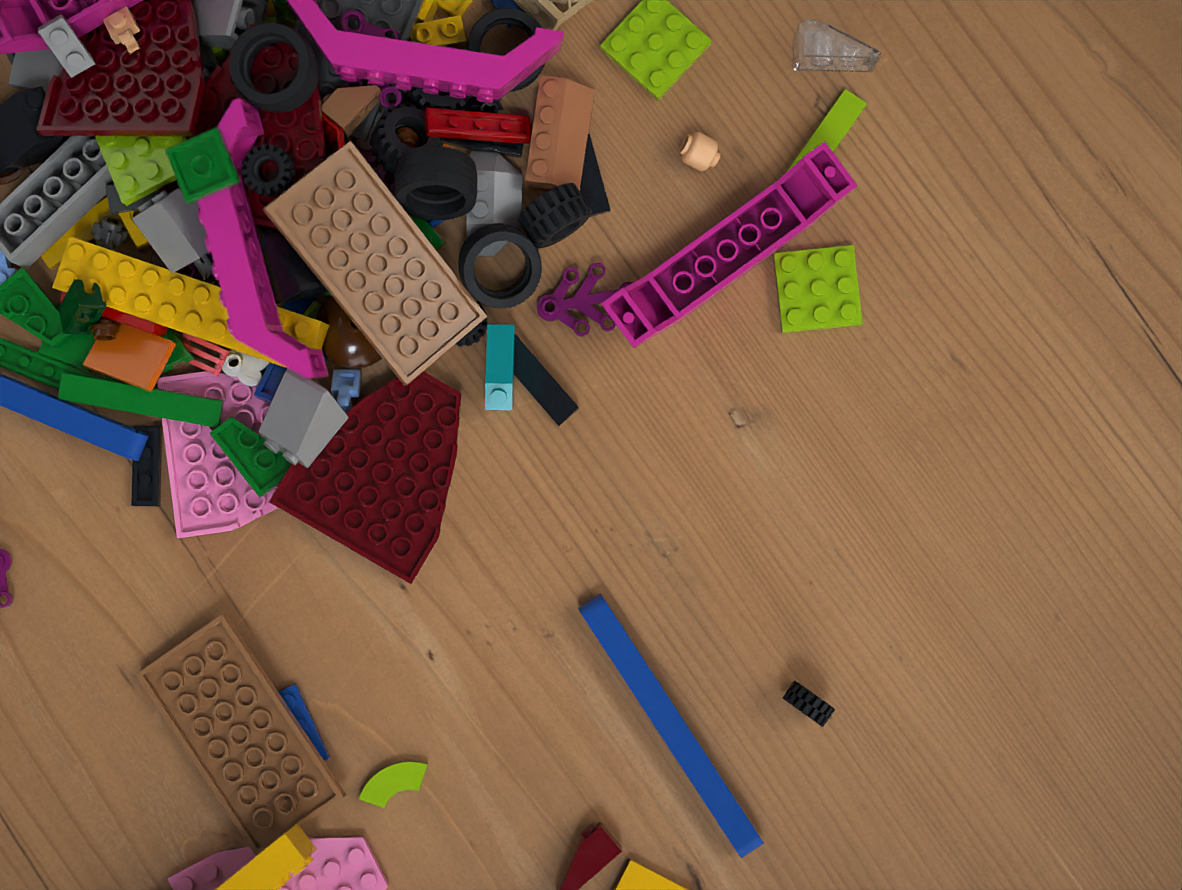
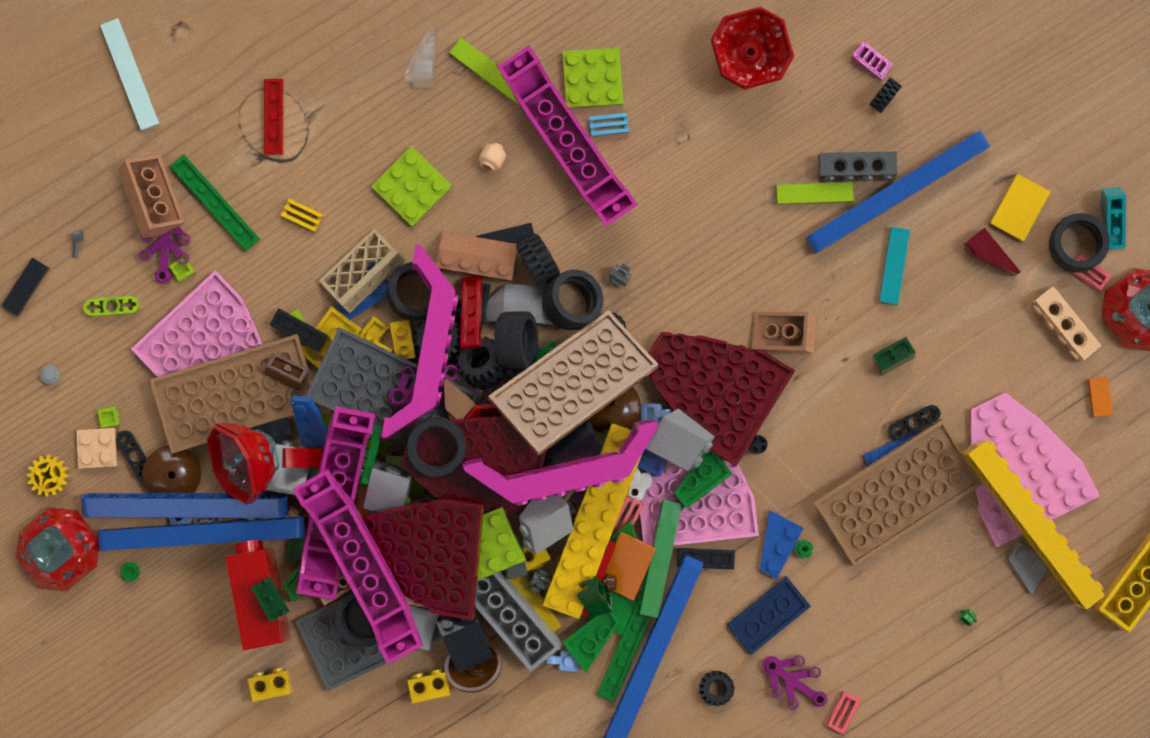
camera: 95 degrees left, 0 degrees up
(66, 45) = (413, 596): light grey plate -> none
(67, 838) = (967, 617): none -> green plate
(68, 556) = (768, 615): none -> dark blue tile
(122, 27) = (398, 559): light nougat plate -> none
(155, 608) = (802, 554): none -> green plate
(169, 567) = (778, 543): none -> blue wing
(202, 165) = (509, 493): green tile -> none
(253, 164) = (503, 466): black tyre -> none
(301, 535) = (760, 443): none -> black wheel
(327, 741) = (929, 420): none -> black beam
(393, 779) = (931, 386): lime tile -> none
(408, 136) = (480, 360): reddish brown plate -> none
(435, 724) = (894, 356): none -> dark green hinge
(465, 567) = (784, 332): none -> nougat slope
(499, 367) = (644, 302): teal slope -> none
(538, 334) = (620, 275): none -> dark grey gear
(542, 384) = (649, 280): black slope -> none
(565, 722) = (894, 265): none -> teal tile
(581, 301) = (596, 245): magenta plant -> none
(665, 606) = (814, 193): none -> lime tile
(716, 708) = (887, 160): none -> dark grey brick
(763, 315) = (608, 124): none -> medium azure tile
(850, 678) = (868, 66): none -> dark pink slope
(893, 507) = (754, 31): none -> red rock

